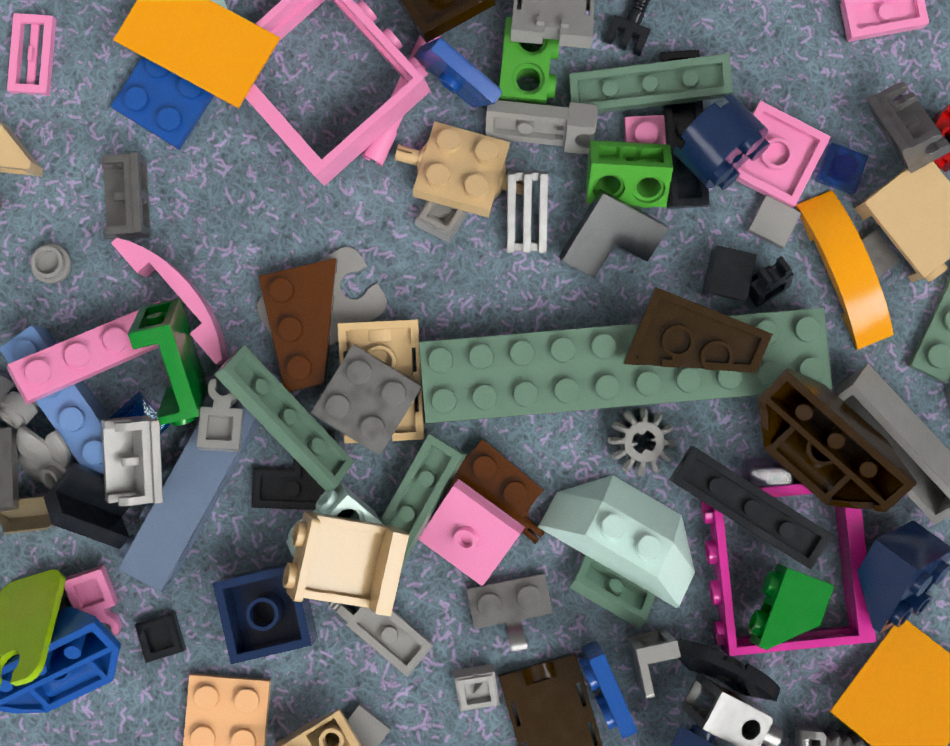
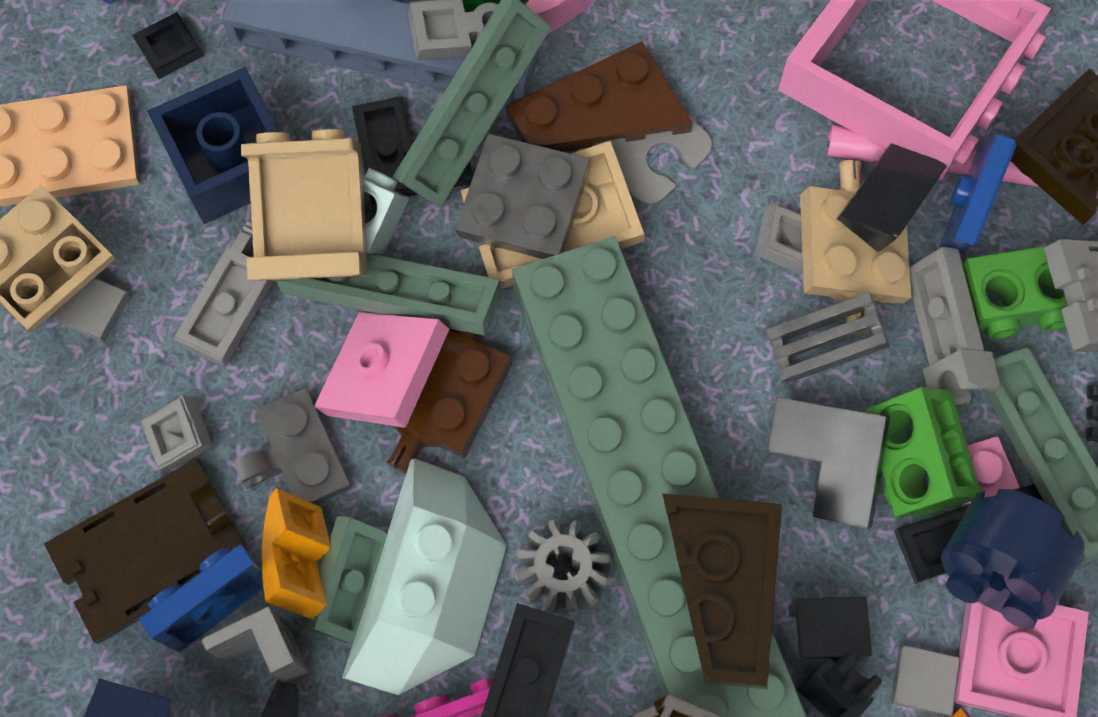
camera: 75 degrees right, 15 degrees down
(437, 133) = (890, 195): none -> black slope
(583, 623) = (291, 547): none -> light orange slope

